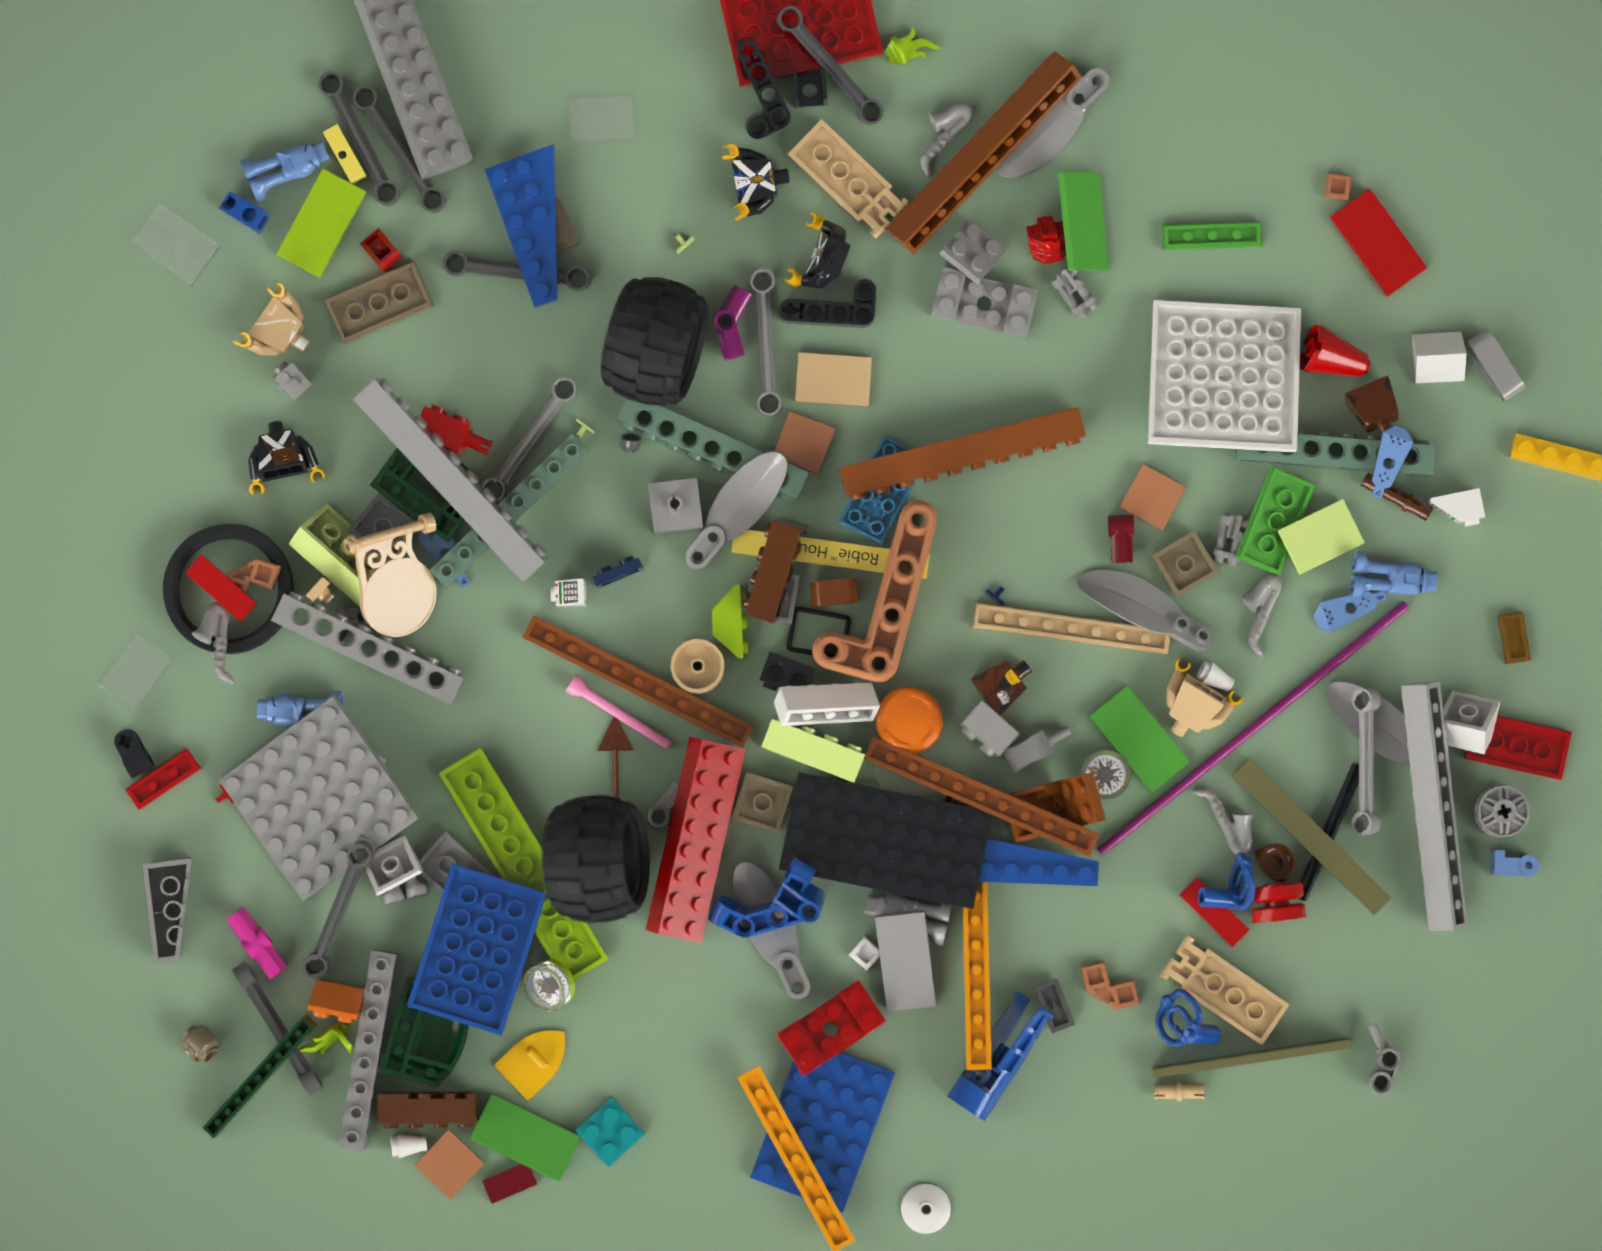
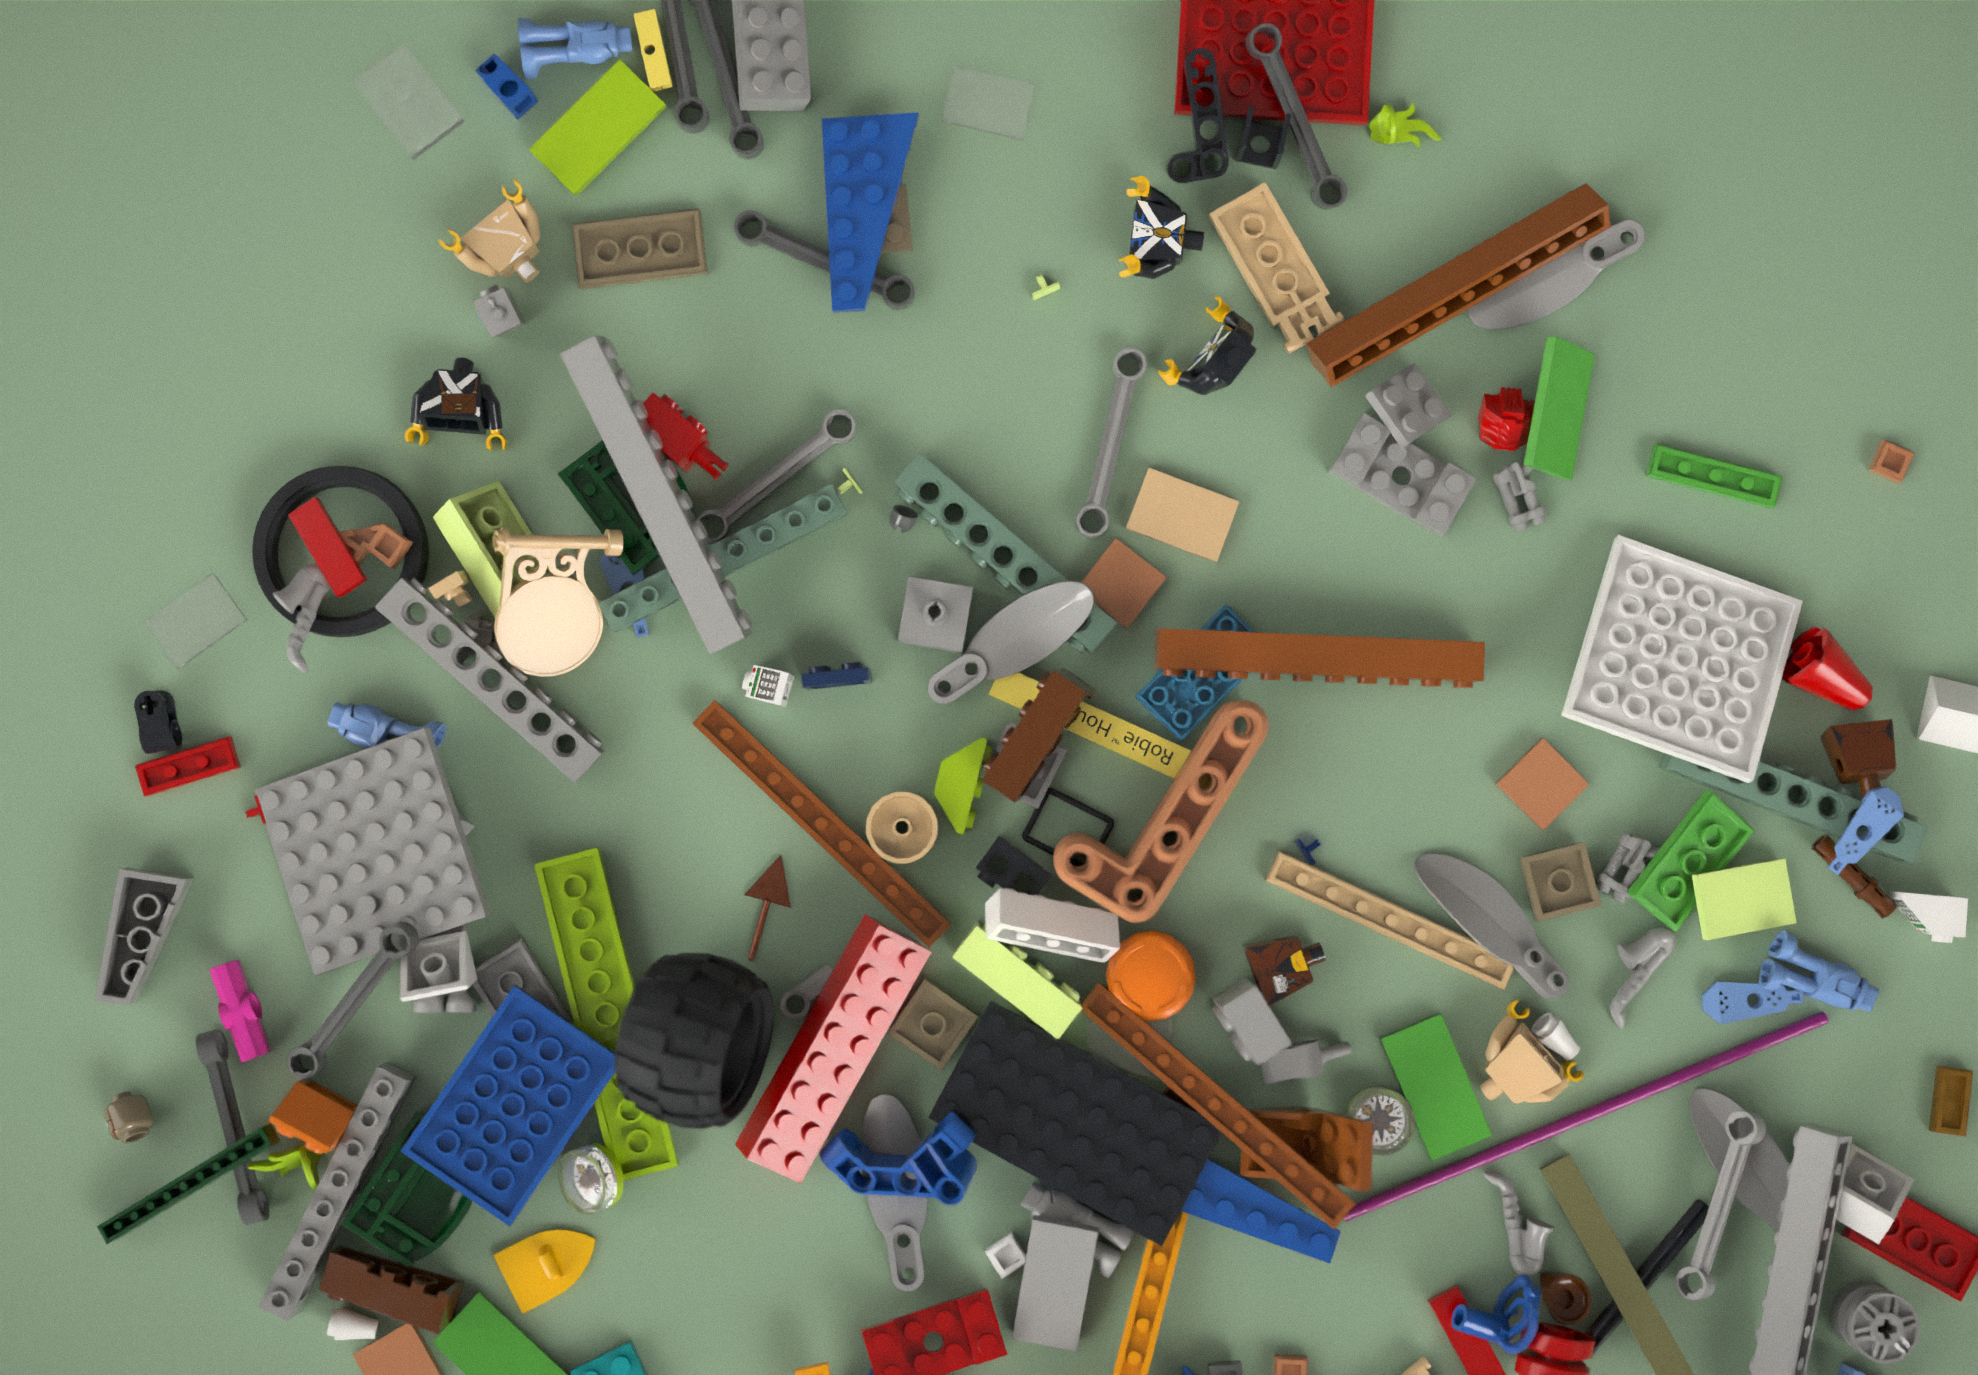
camera: 20 degrees right, 0 degrees up
(379, 516) = (557, 516): dark grey plate -> none
(381, 250) = (663, 185): red slope -> none
(579, 688) = (744, 809): bright pink piece -> none
(654, 341) = (970, 395): black tyre -> none
(729, 337) = (1067, 422): magenta piece -> none
(827, 307) = (1201, 421): black beam -> none
(834, 592) = (1104, 784): dark orange beam -> none
(952, 121) = (1428, 235): light grey piece -> none
(1121, 533) = (1490, 815): dark red piece -> none
(1378, 242) = (1922, 547): red tile -> none

